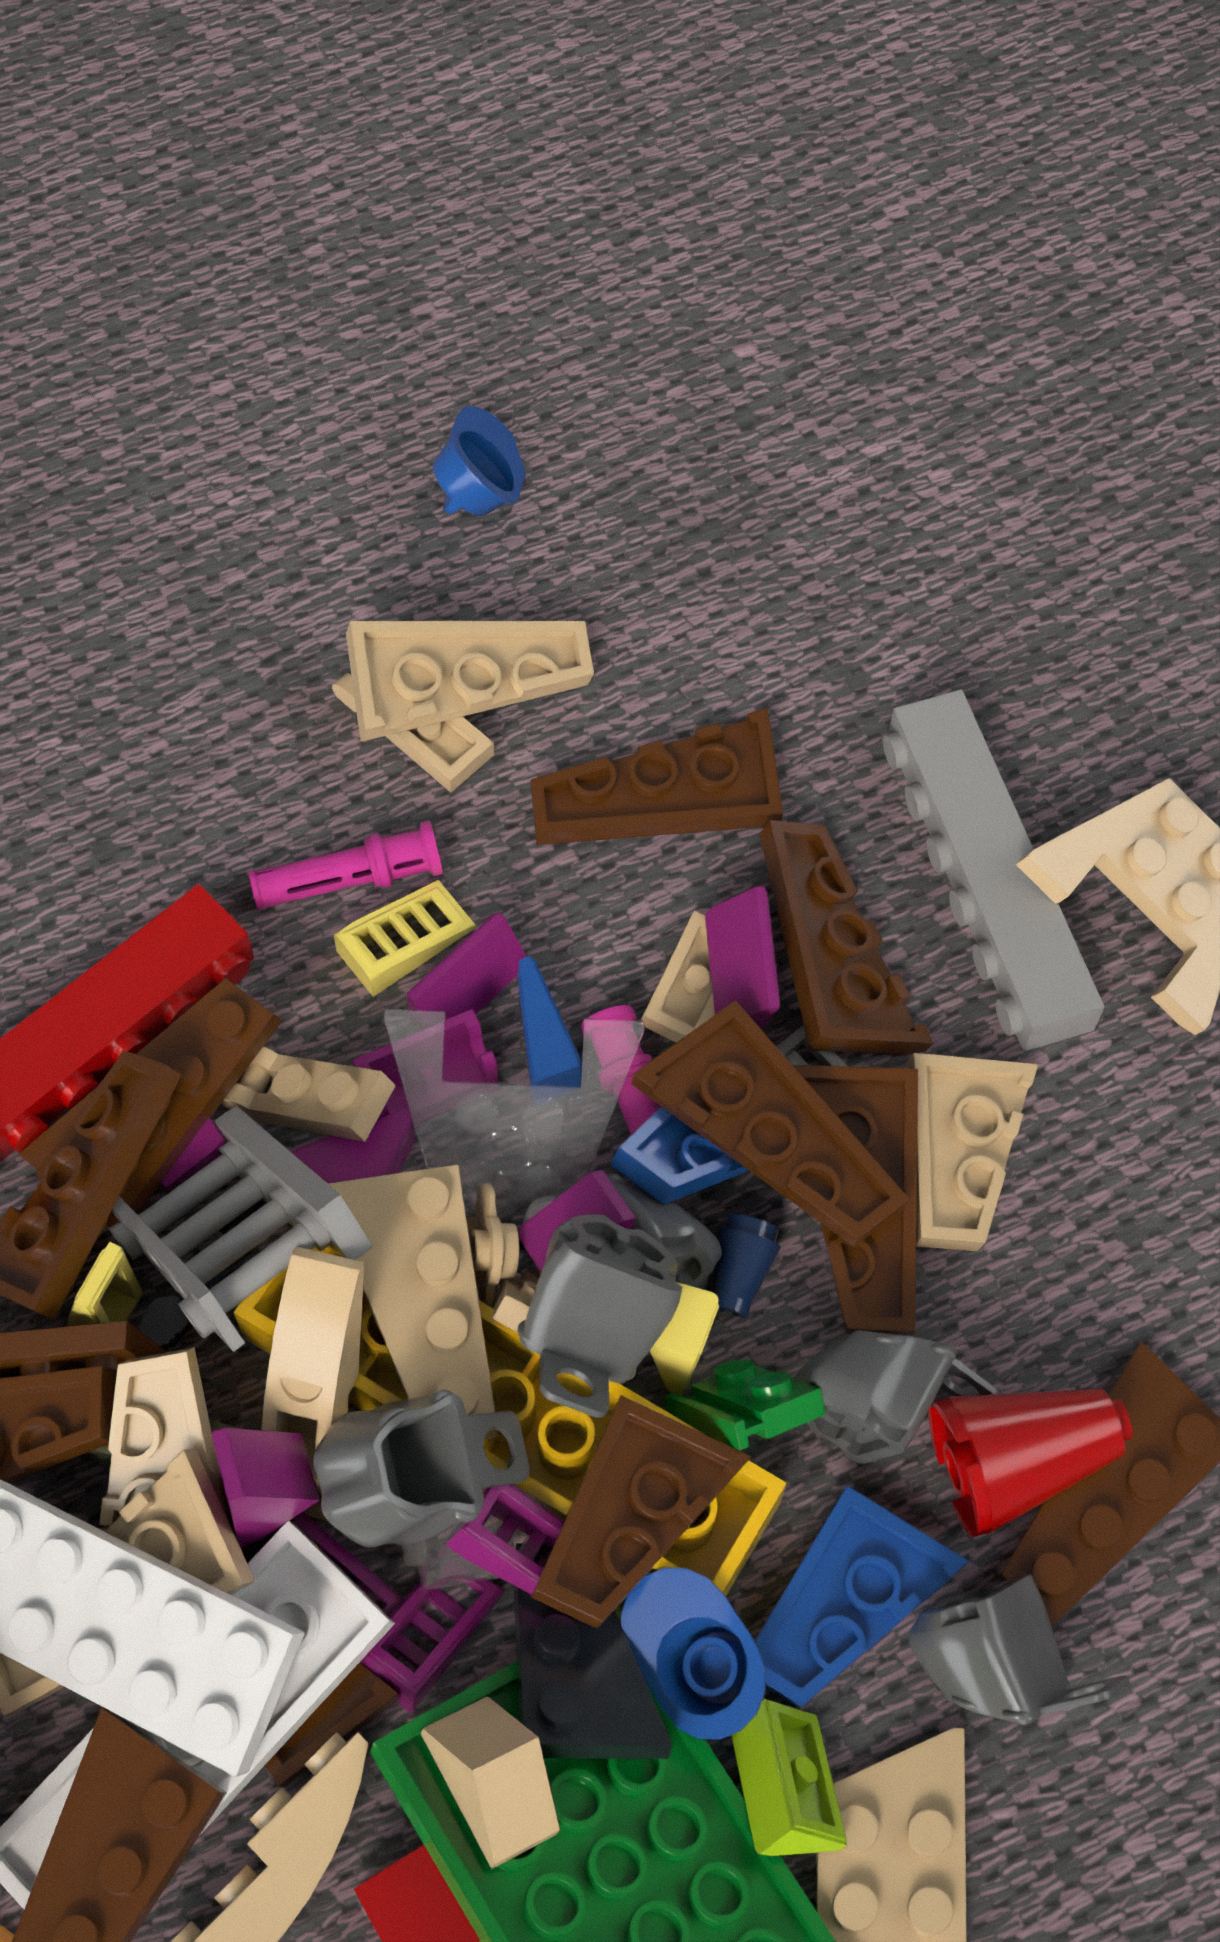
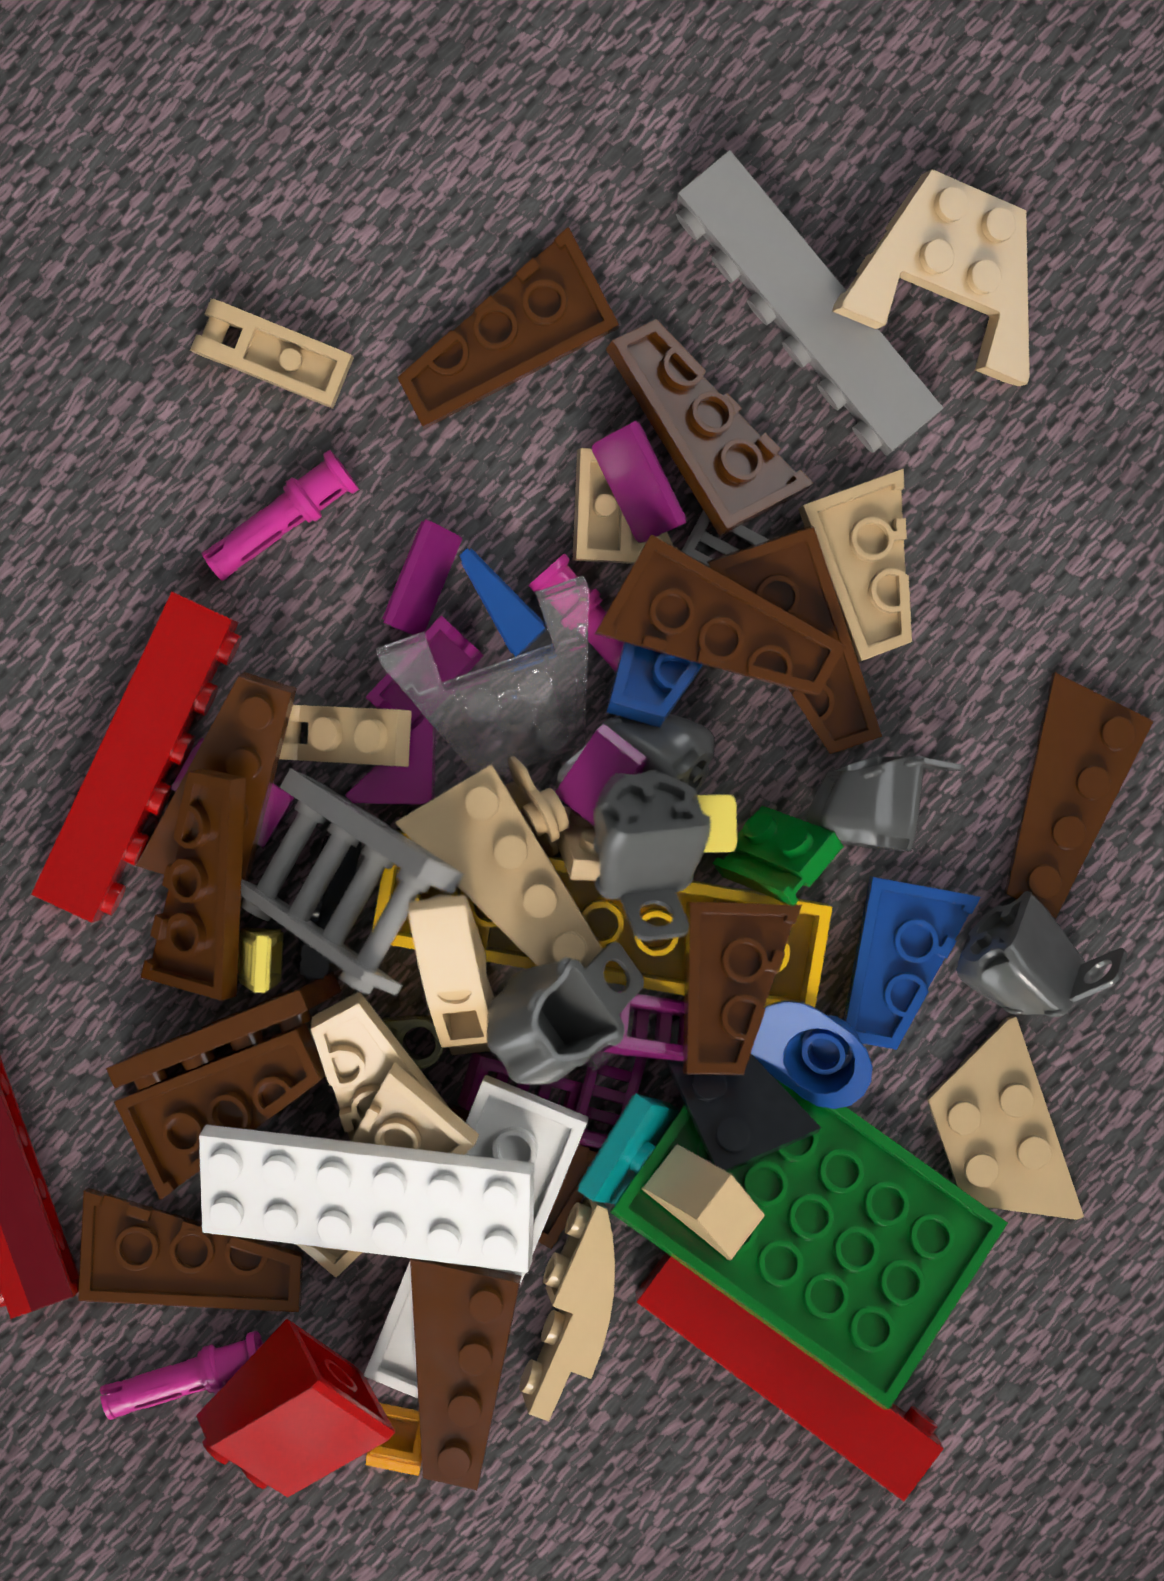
camera: 20 degrees left, 25 degrees up
(263, 1479) = (456, 1066): magenta slope -> none
(397, 963) = (346, 603): light yellow slope -> none
(423, 1673) = (626, 1148): none -> teal plate
(451, 669) = (286, 304): tan wing -> none
(479, 464) = (222, 74): blue piece -> none
(746, 1258) = (732, 724): dark blue cone -> none
(788, 1783) = (908, 1108): lime slope -> none
(1023, 1448) = (997, 802): red cone -> none

